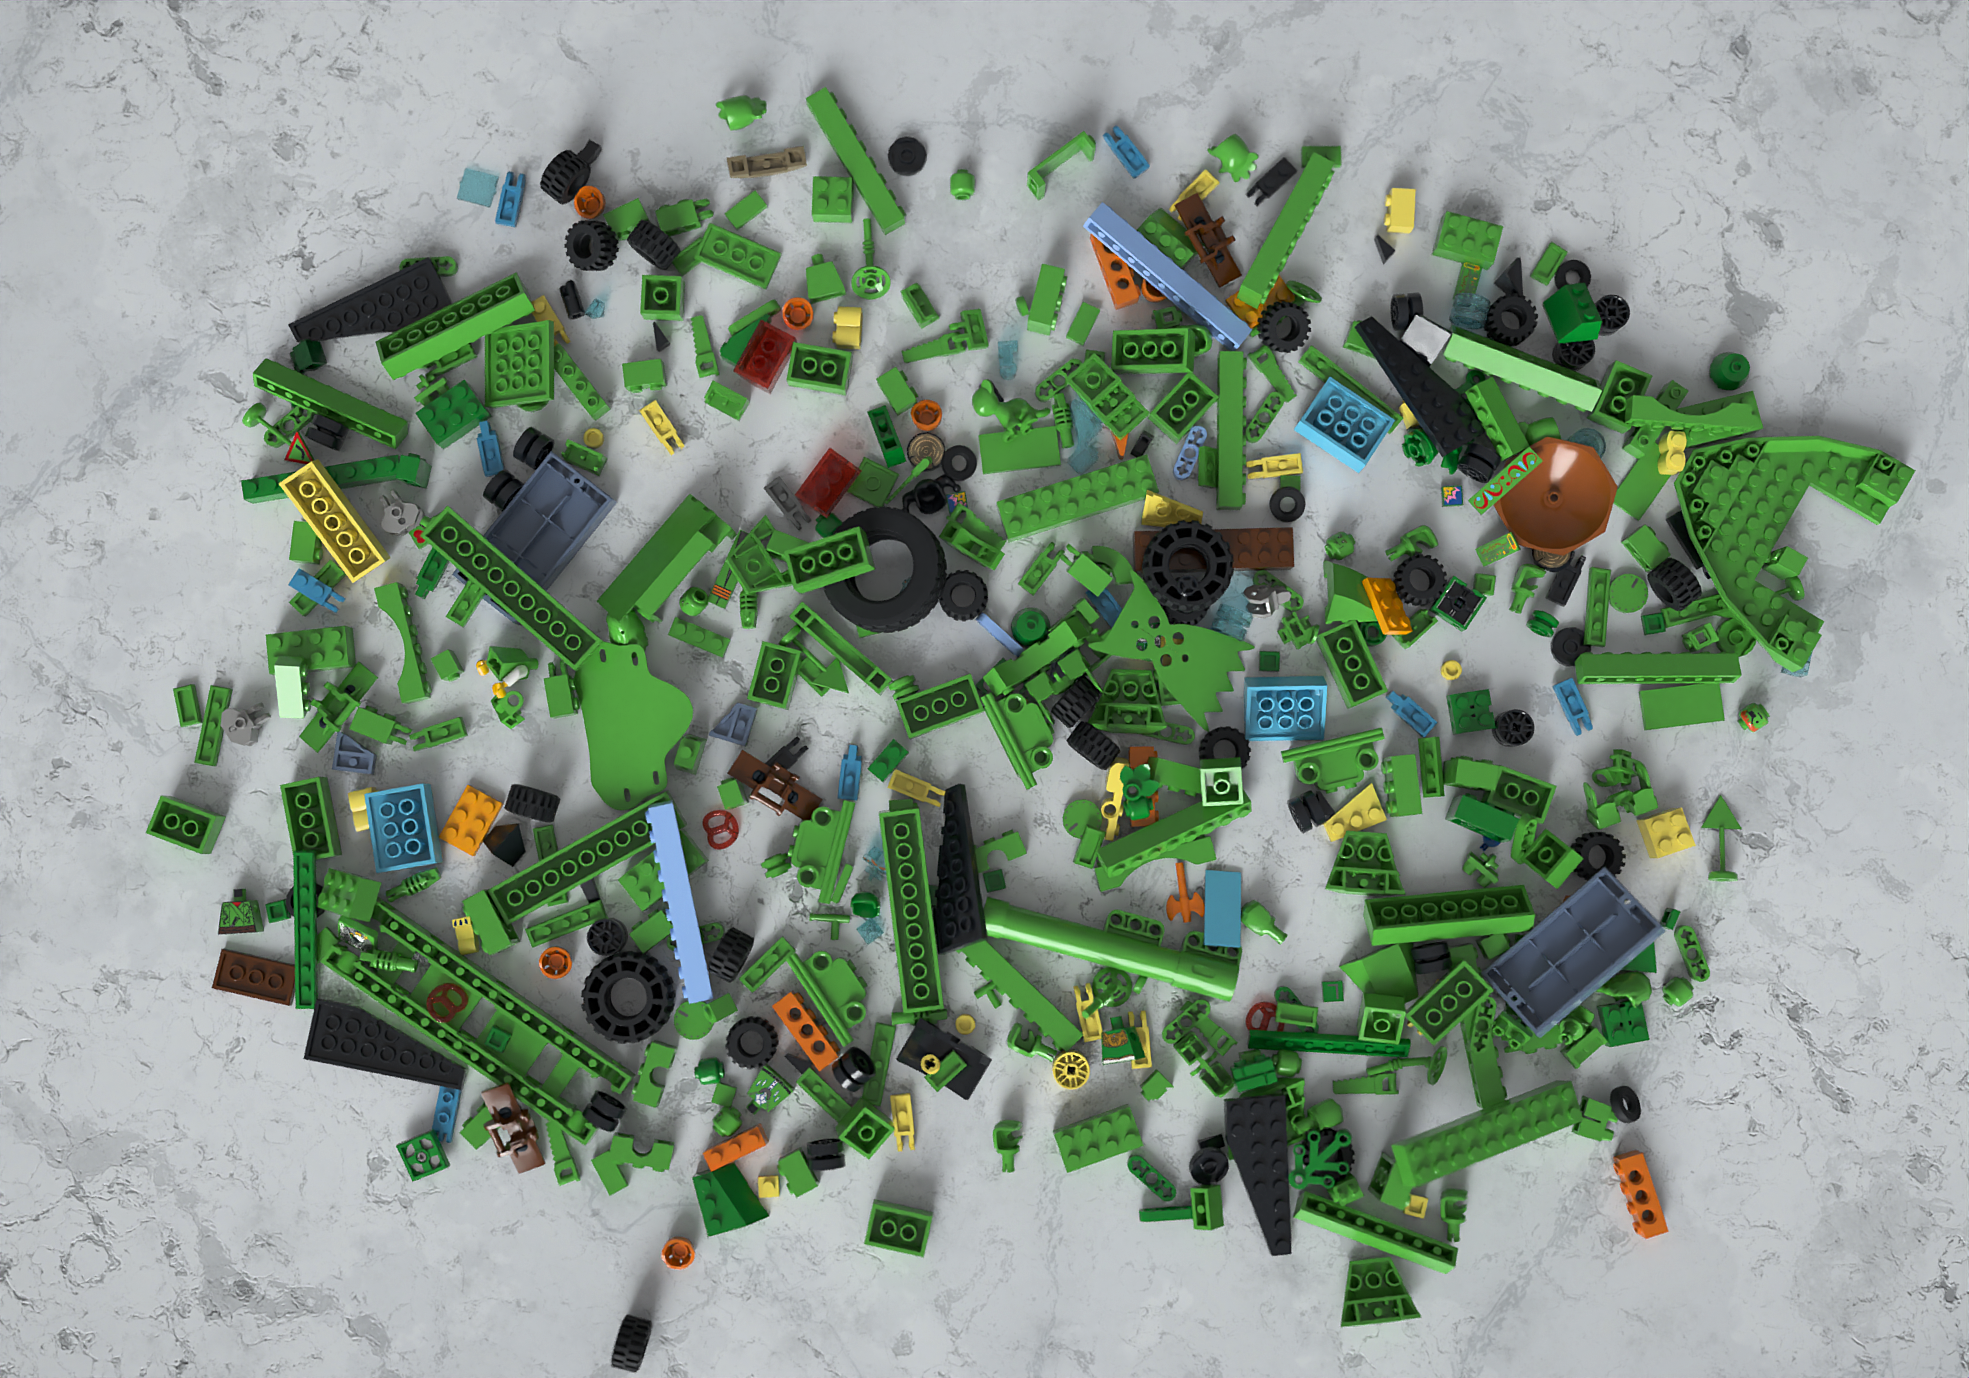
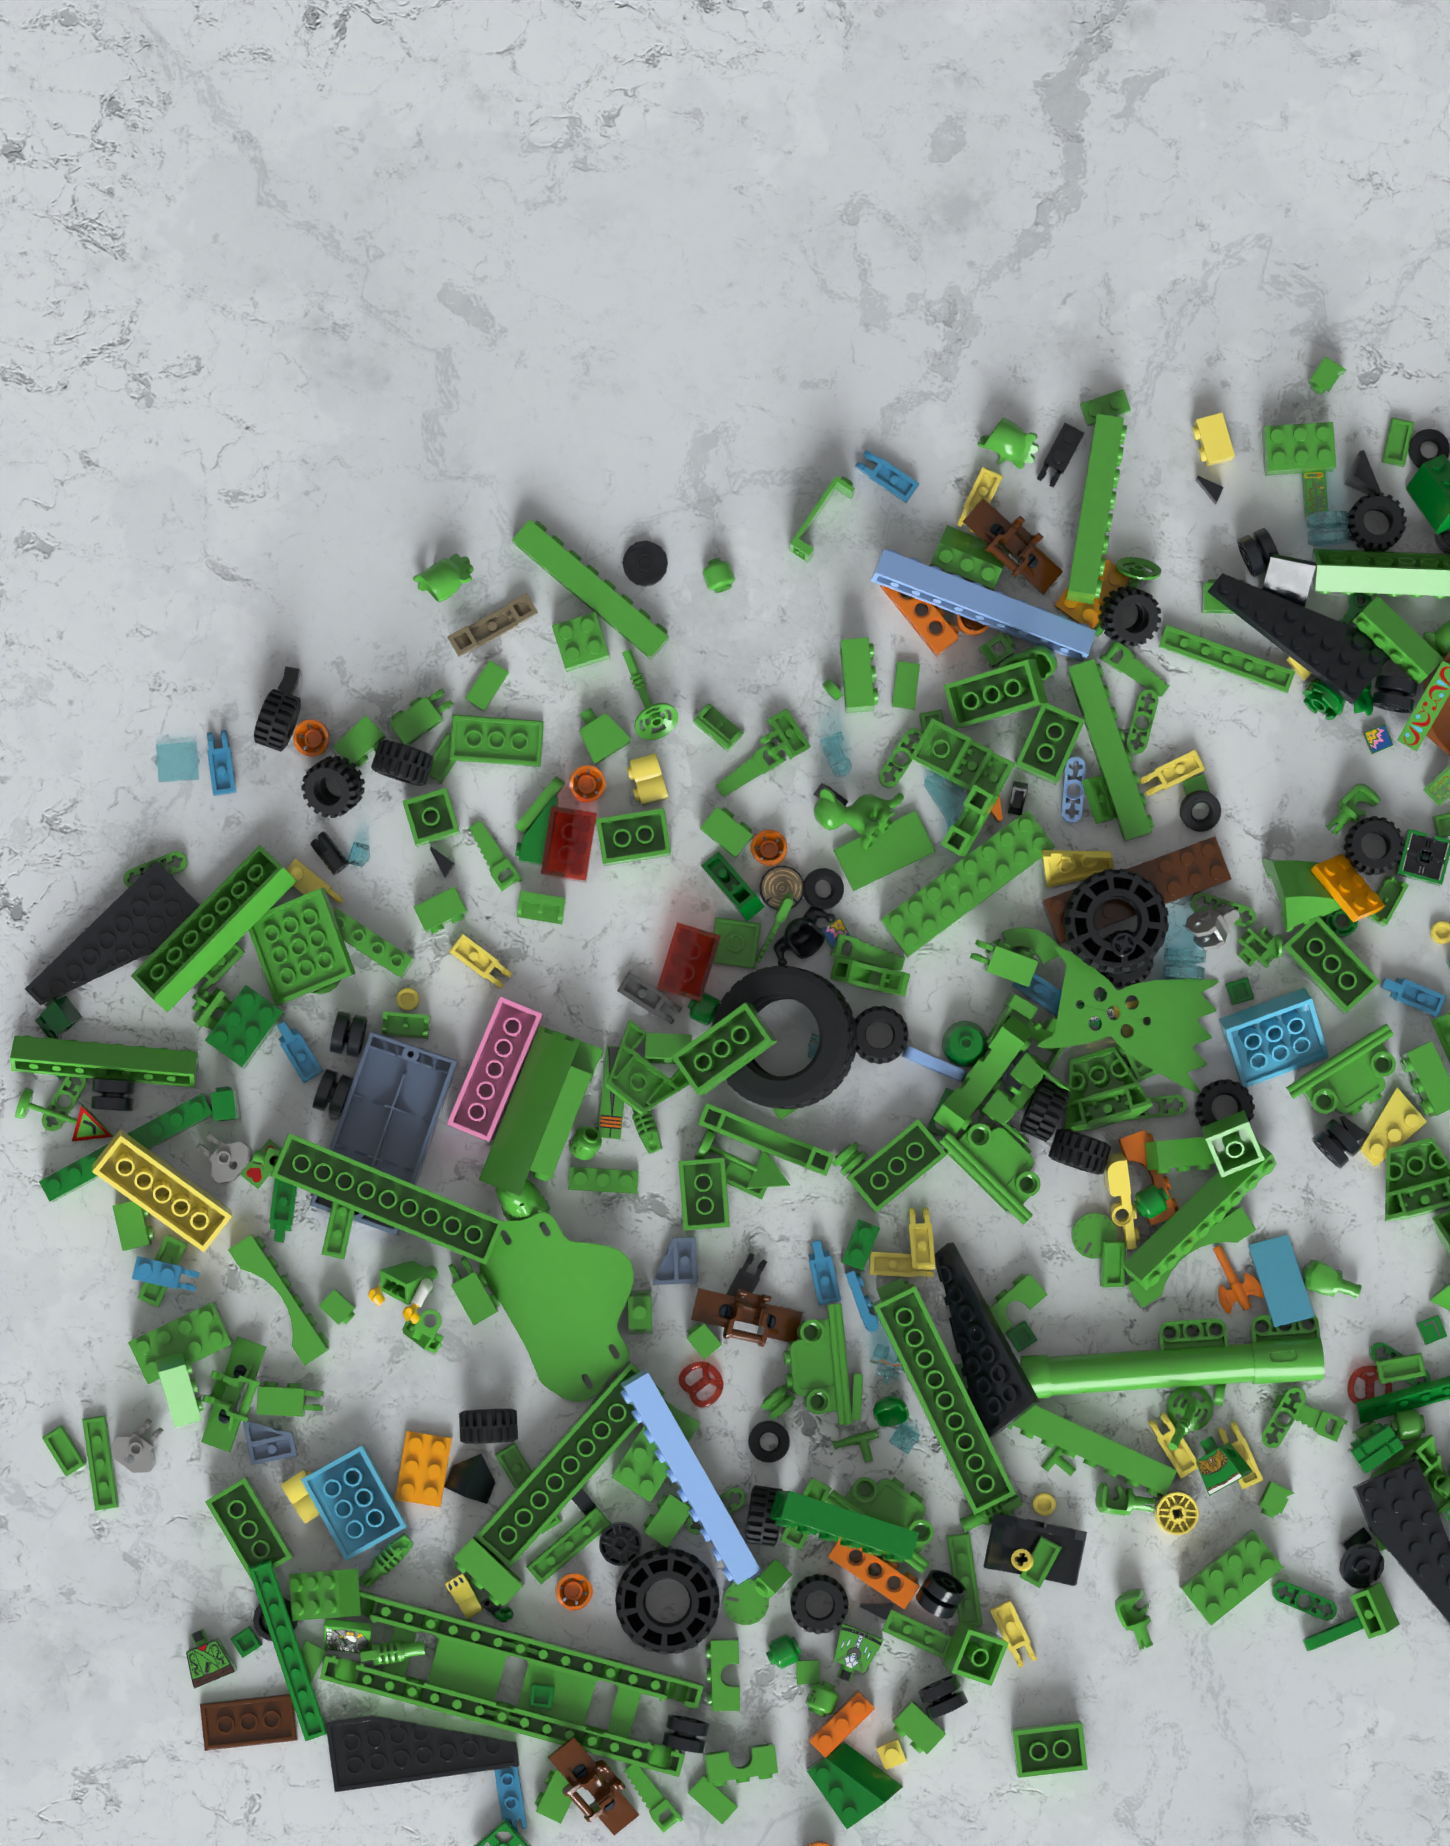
camera: 20 degrees left, 0 degrees up
(185, 824) = (113, 1581): bright green brick -> none
(440, 733) = (356, 1385): bright green hinge -> none
(446, 1001) = (471, 1674): clear red piece -> none
(491, 960) = (498, 1612): none -> arm
(641, 516) = (495, 1069): none -> bright pink brick
(747, 901) = (769, 1427): none -> black tyre
(788, 984) = (847, 1526): none -> green brick
(873, 807) = (863, 1302): none -> dark azure hinge
(938, 775) = (921, 1241): none -> light yellow hinge
(1039, 570) = (953, 977): bright green hinge -> none
(1063, 420) = (921, 801): bright green hinge -> none
(1087, 454) = (965, 830): none -> bright green arch
(1140, 780) = (1144, 1172): green plate -> none
(1214, 1076) = (1335, 1467): bright green piece -> none
(1340, 546) = (1273, 837): bright green head -> none
(1344, 425) = (1233, 701): medium azure slope -> none
(1509, 190) = (1325, 376): none -> bright green window

